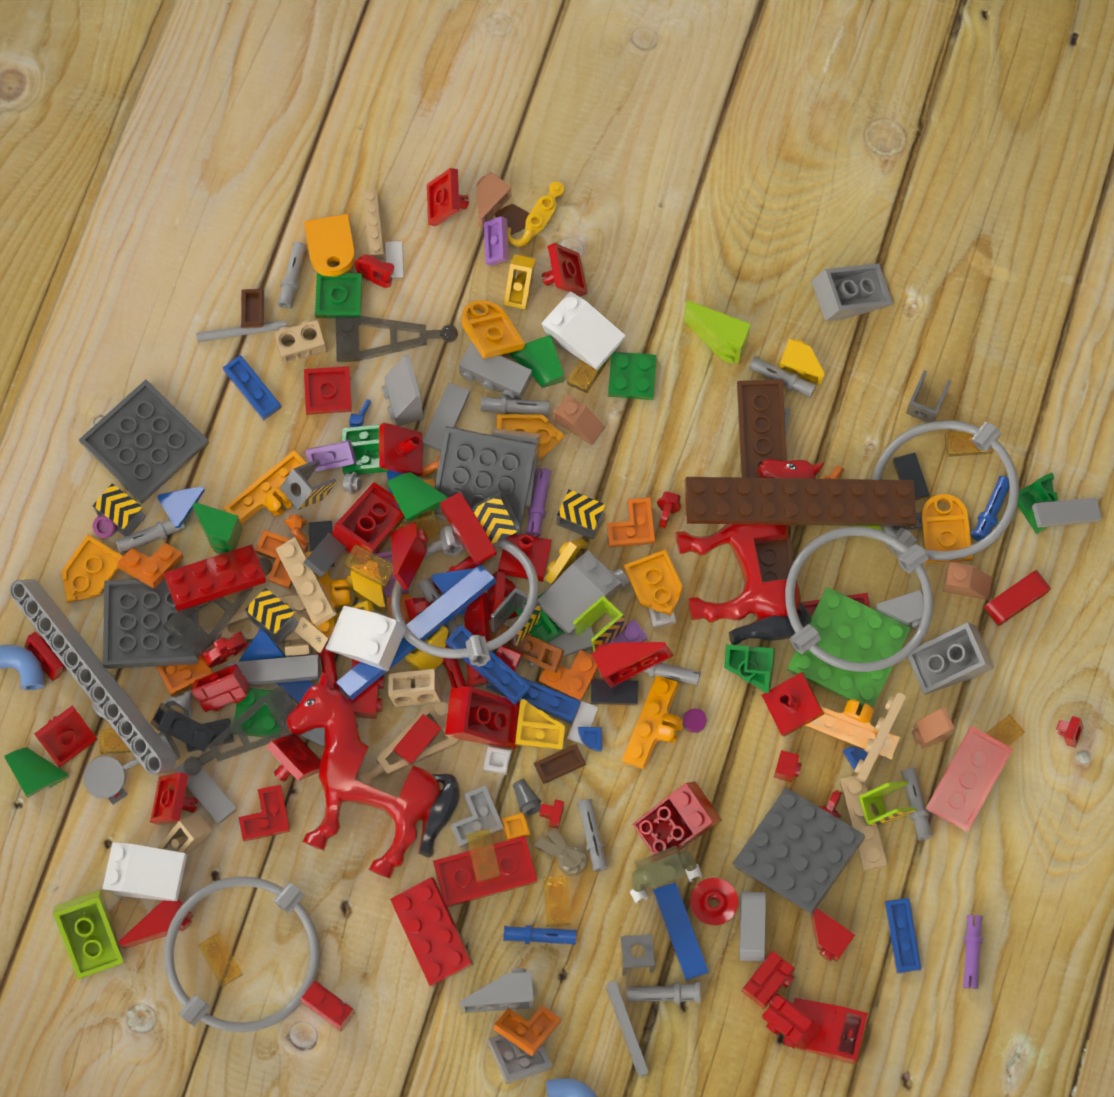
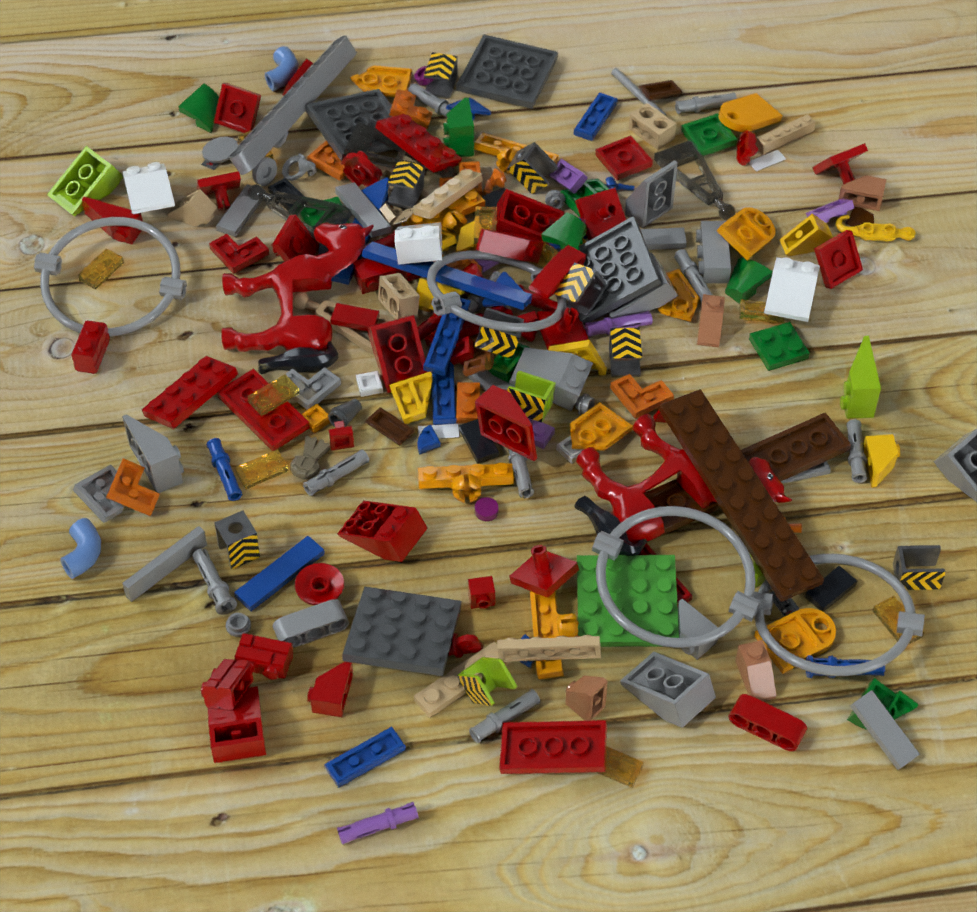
camera: 65 degrees right, 20 degrees down
(182, 727) = (280, 163): black bracket -> none
(220, 688) = (327, 180): red brick -> none
(324, 555) = (476, 195): dark grey tile -> none
(661, 869) = (329, 525): olive torso -> none
(721, 990) = (238, 624): none -> light grey plate
(751, 664) = (564, 528): green slope -> none
(1070, 730) = (658, 824): red tile -> none

